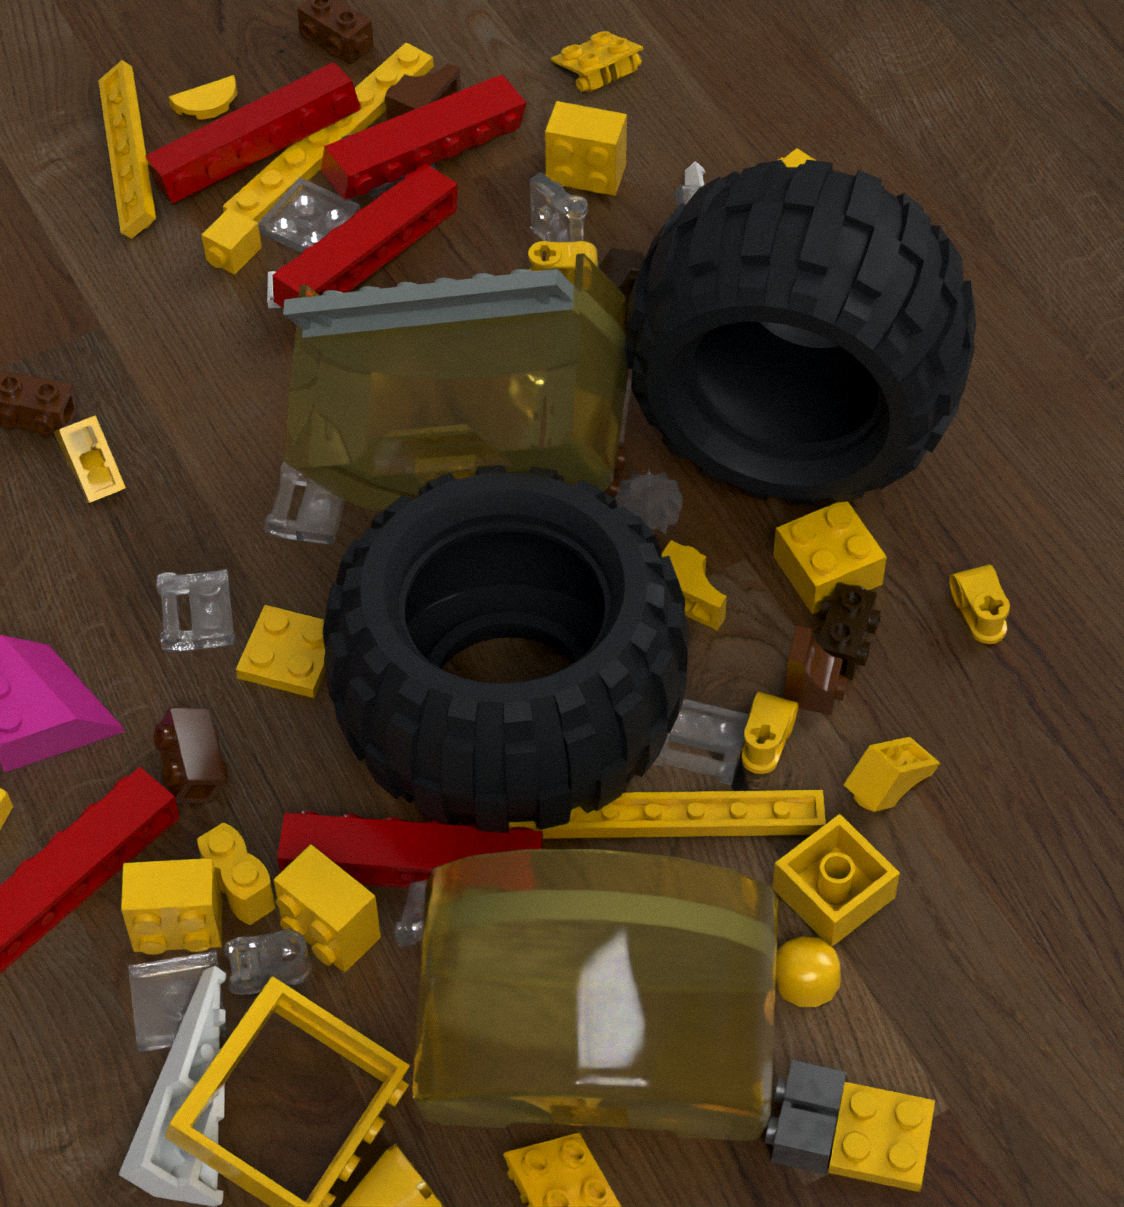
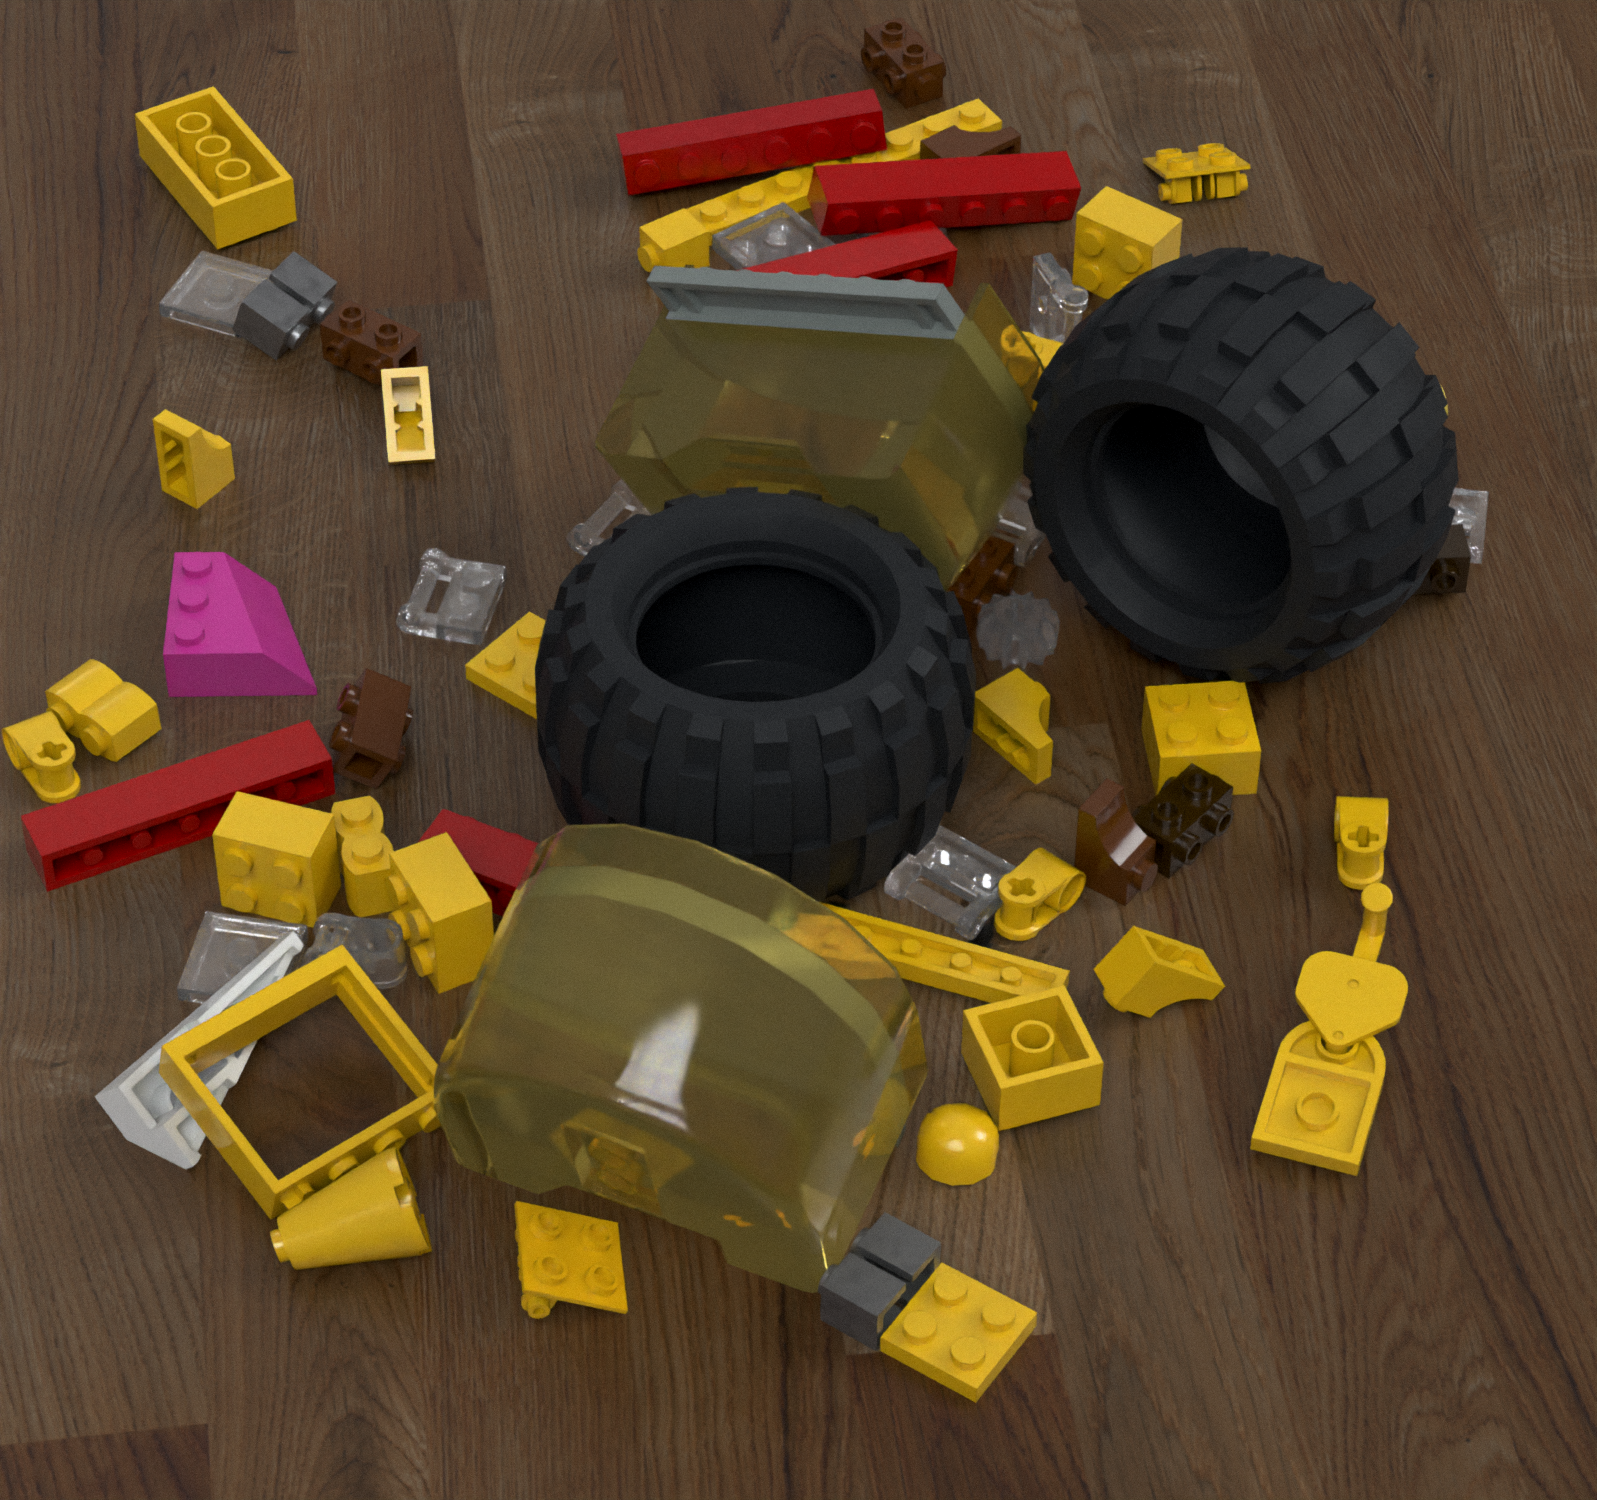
camera: 20 degrees right, 10 degrees down
(126, 150) = (603, 121): yellow plate -> none
(206, 100) = (720, 99): yellow tile -> none
(1053, 838) = (1327, 1096): none -> yellow plate

